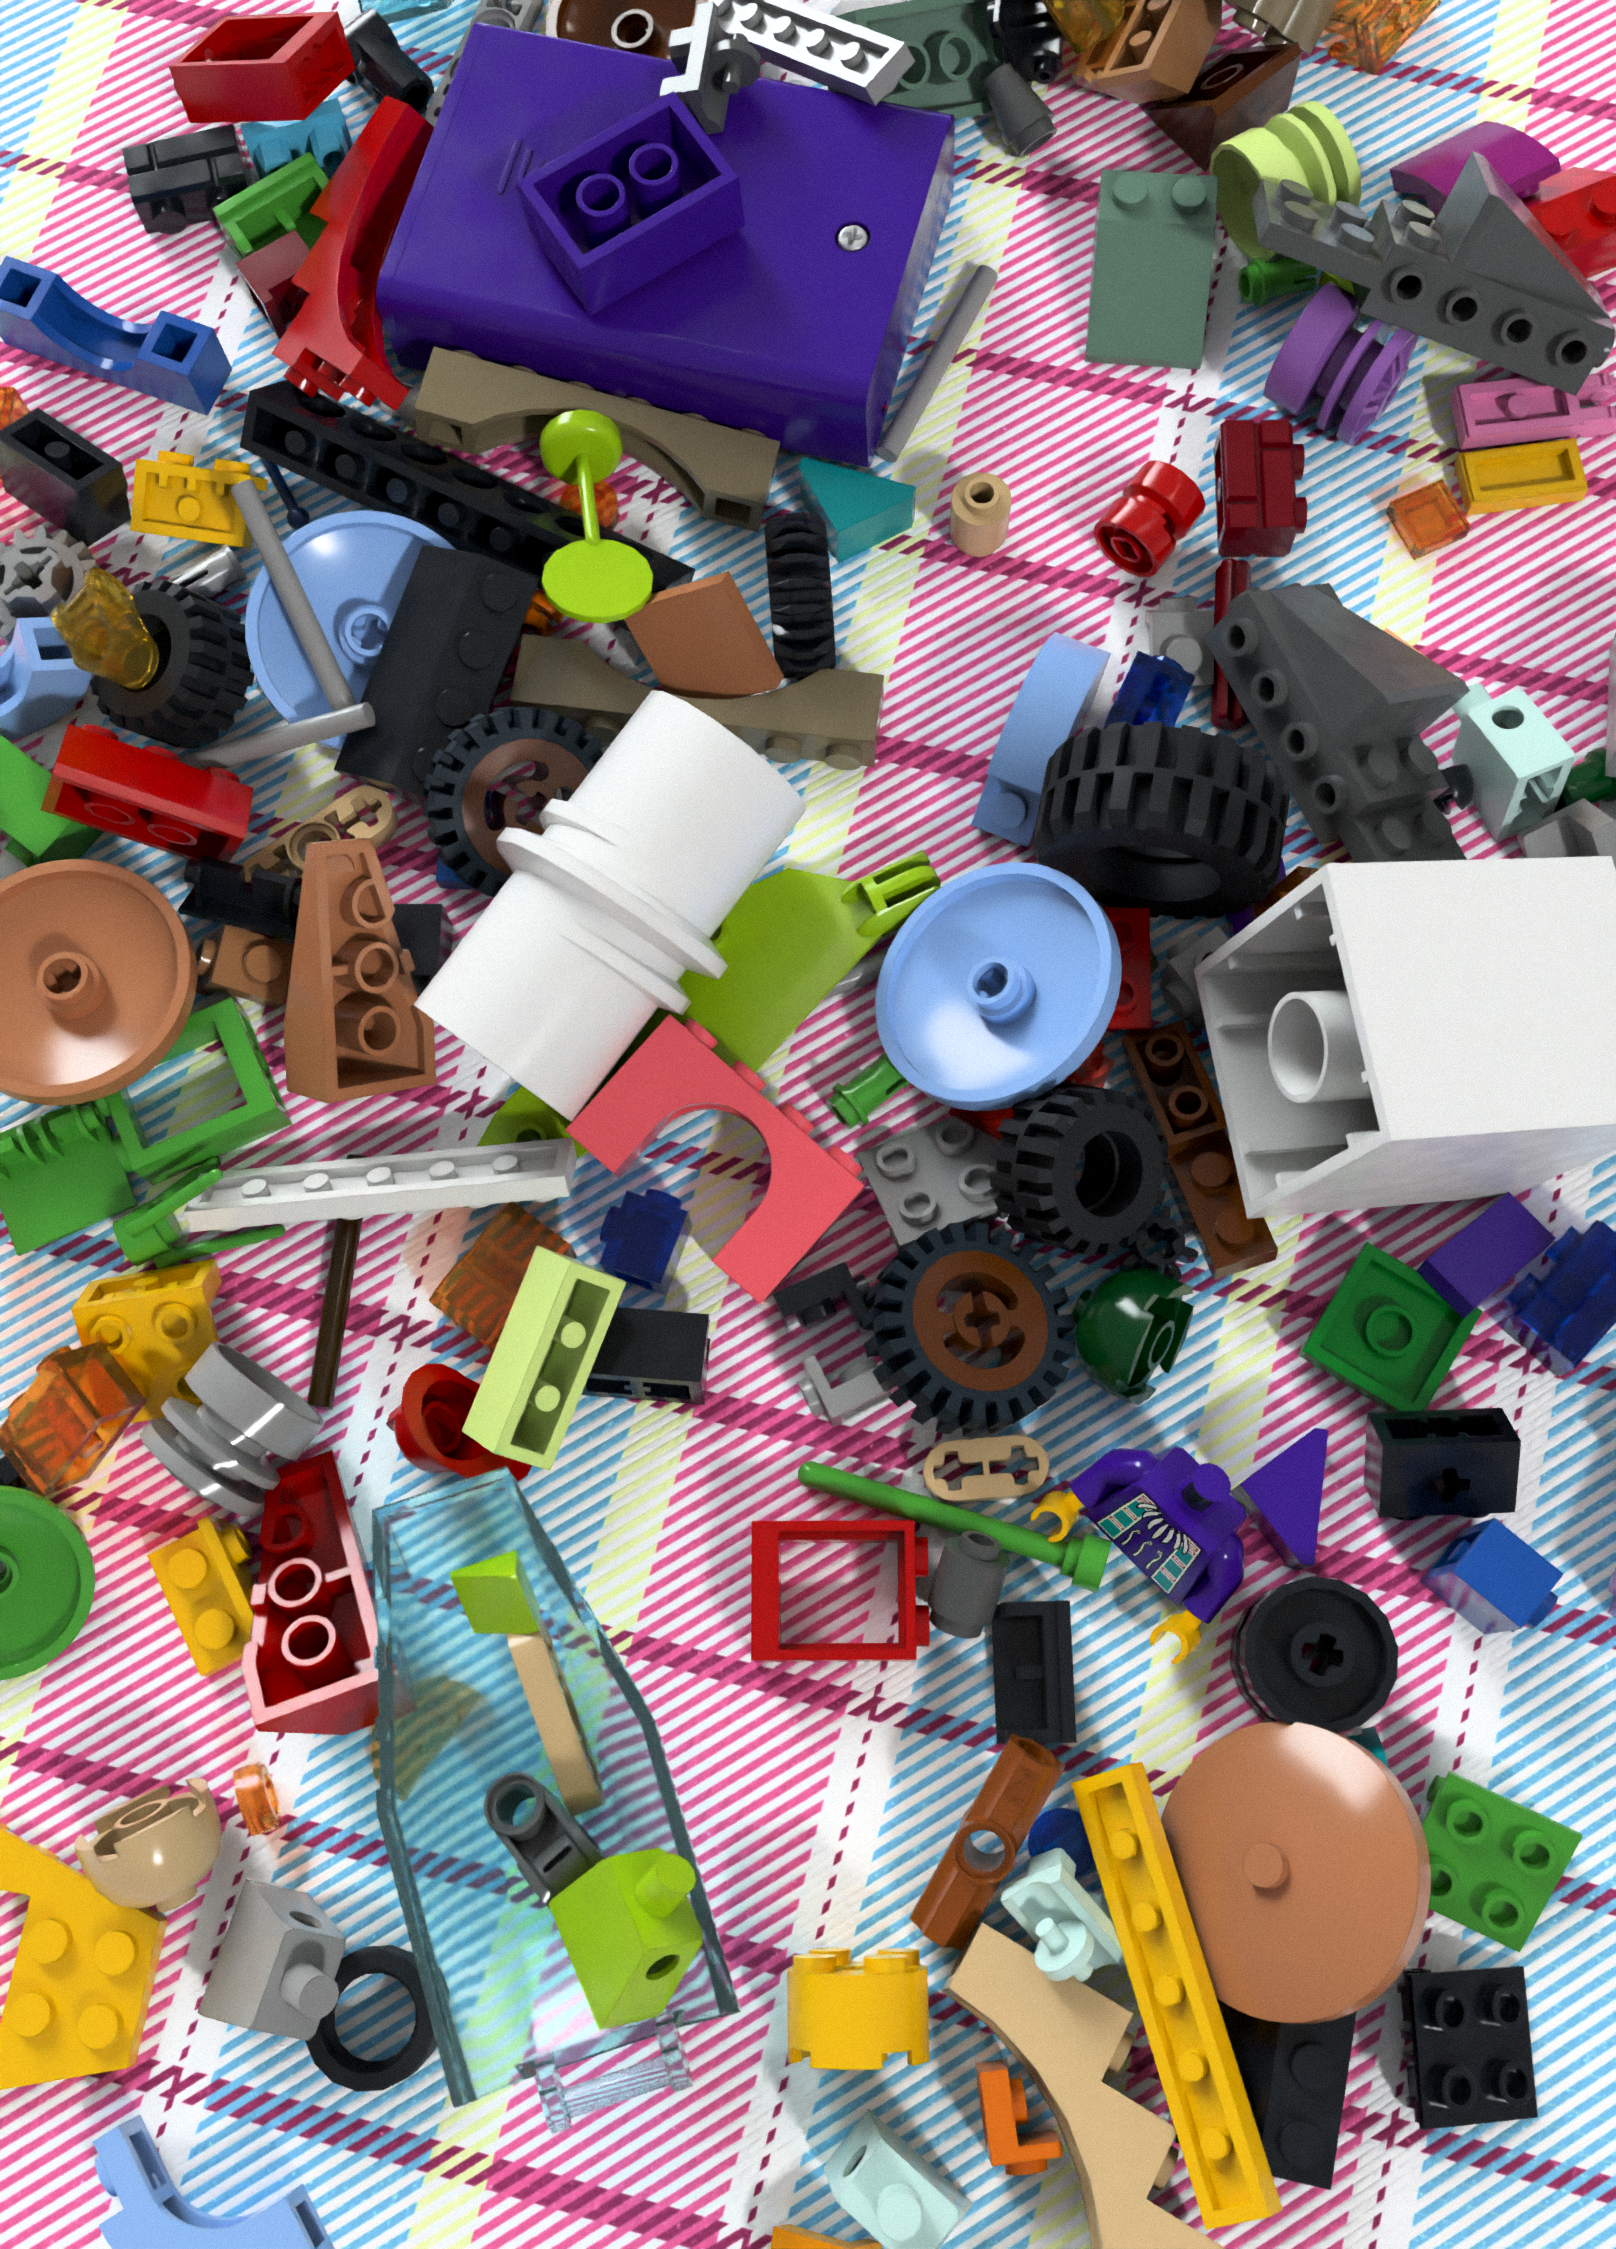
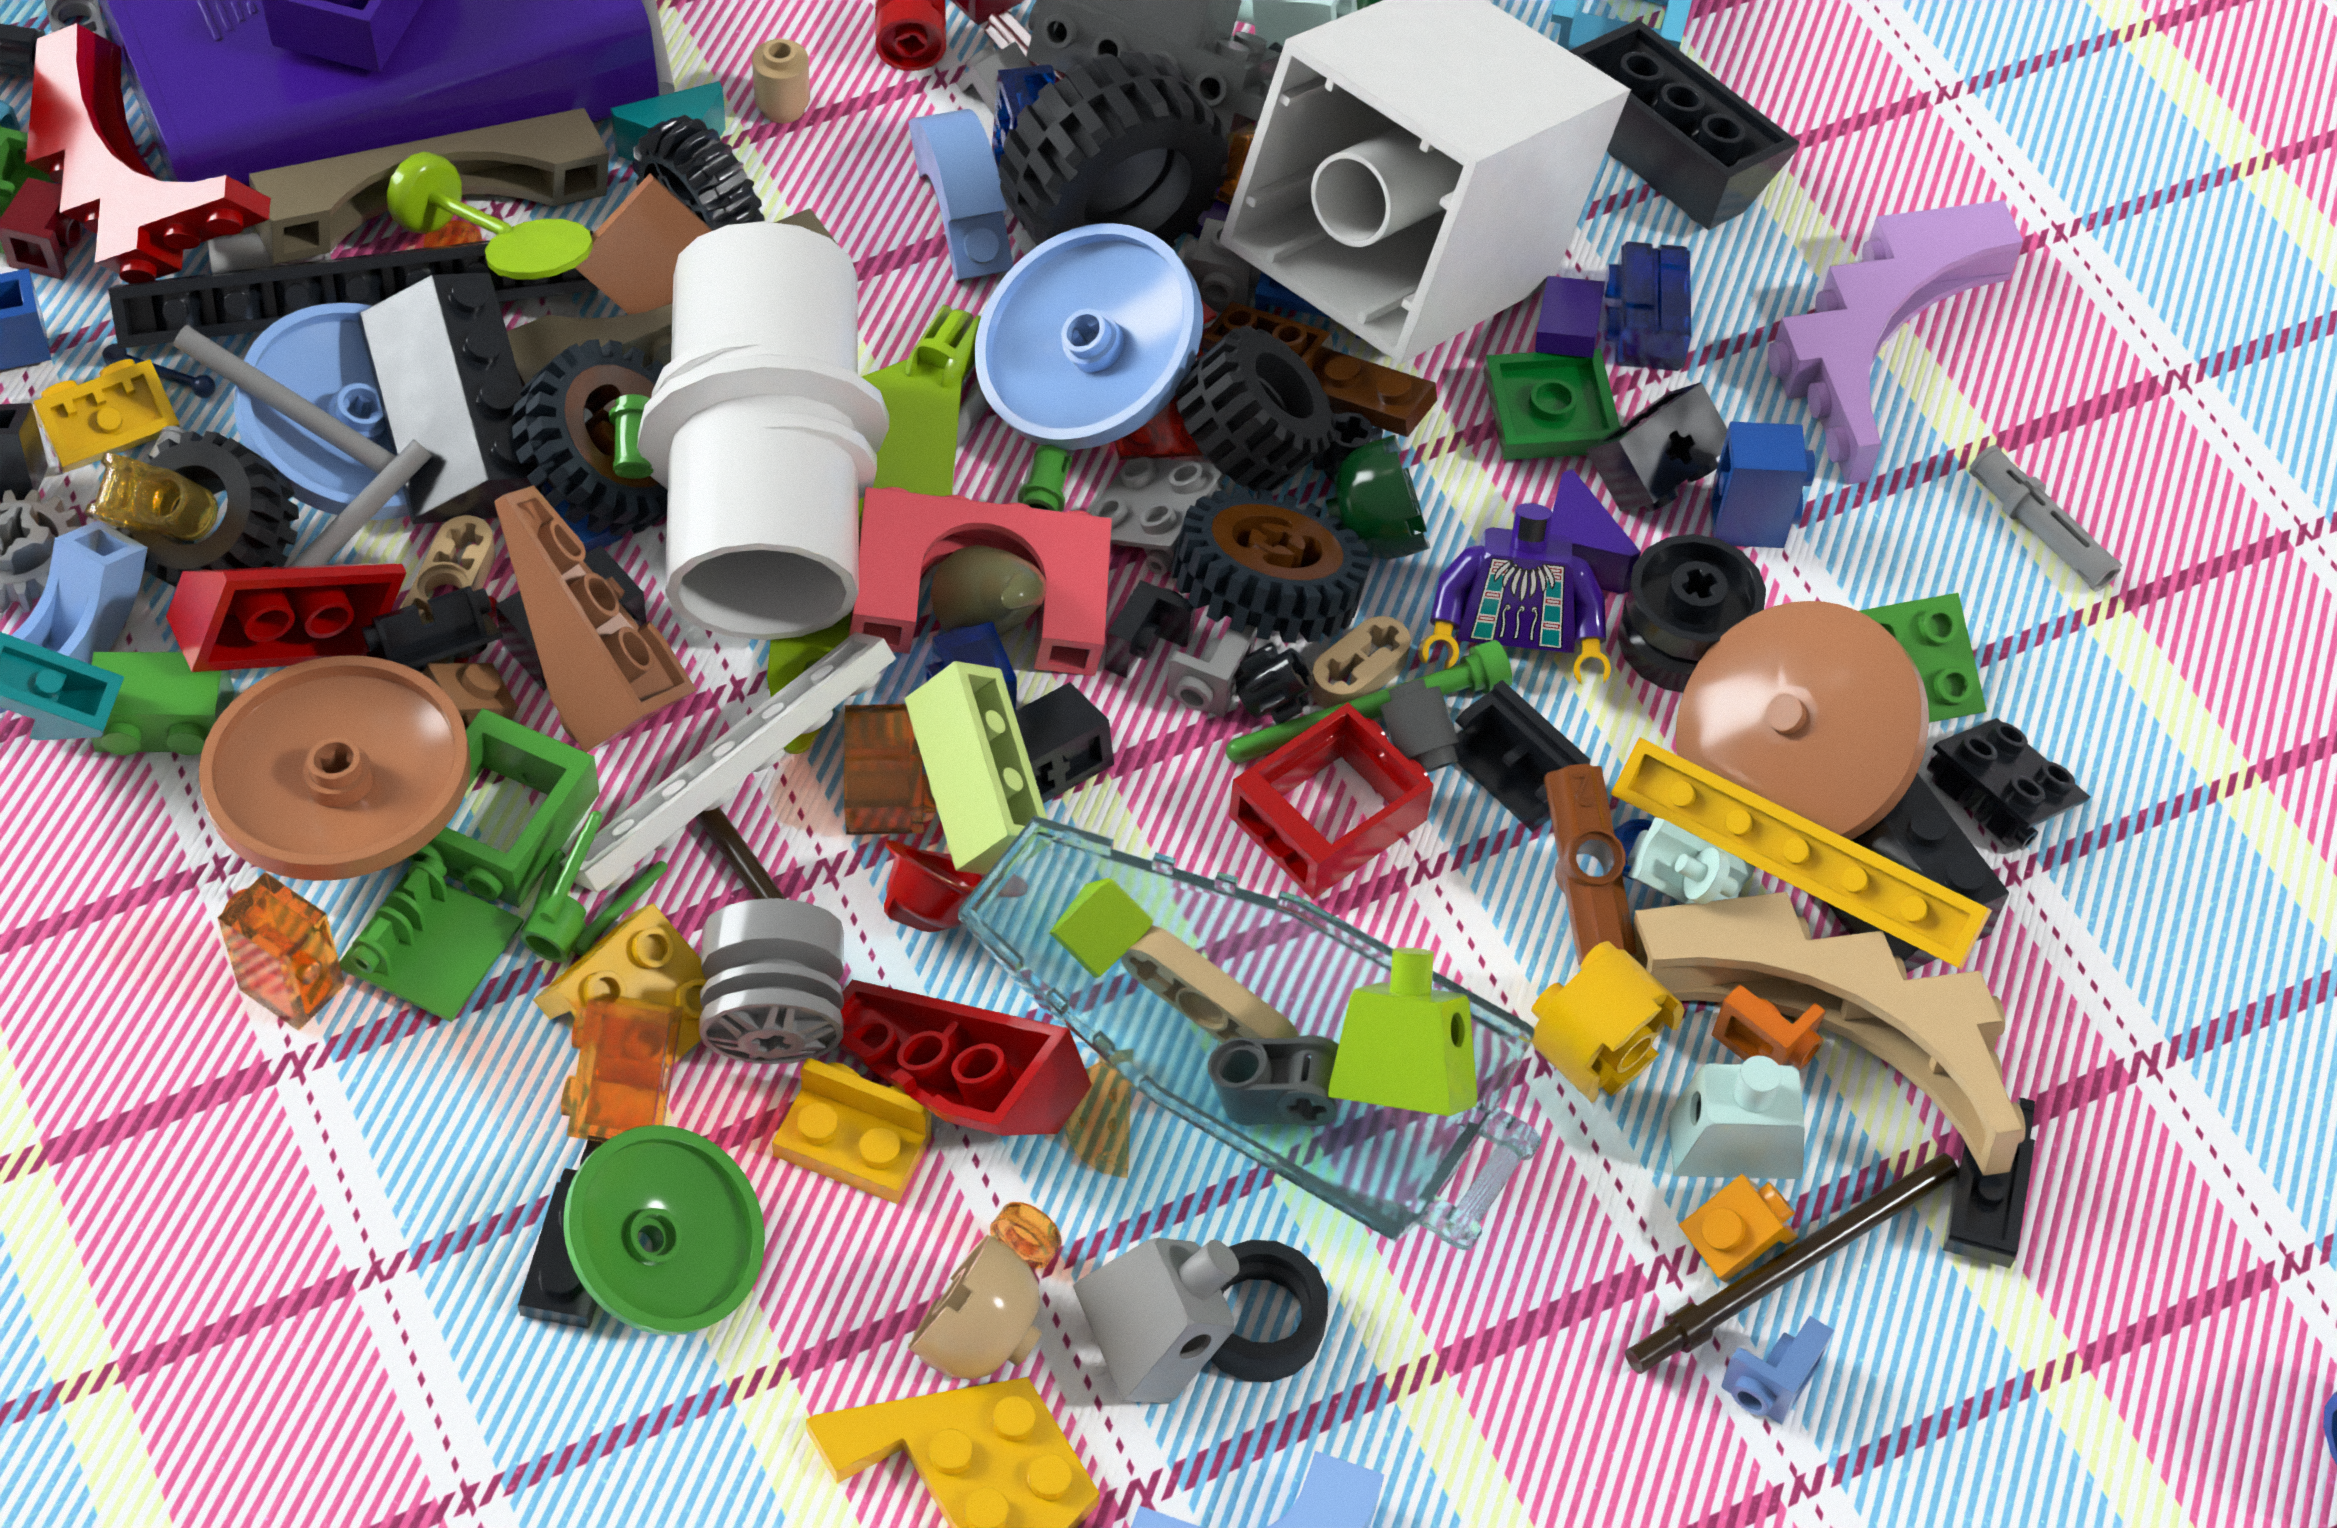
camera: 50 degrees left, 20 degrees down
(522, 815) = (627, 419): none -> bright green pin
(715, 1174) = (984, 587): none -> olive hat
(882, 1442) = (1274, 683): none -> black gear

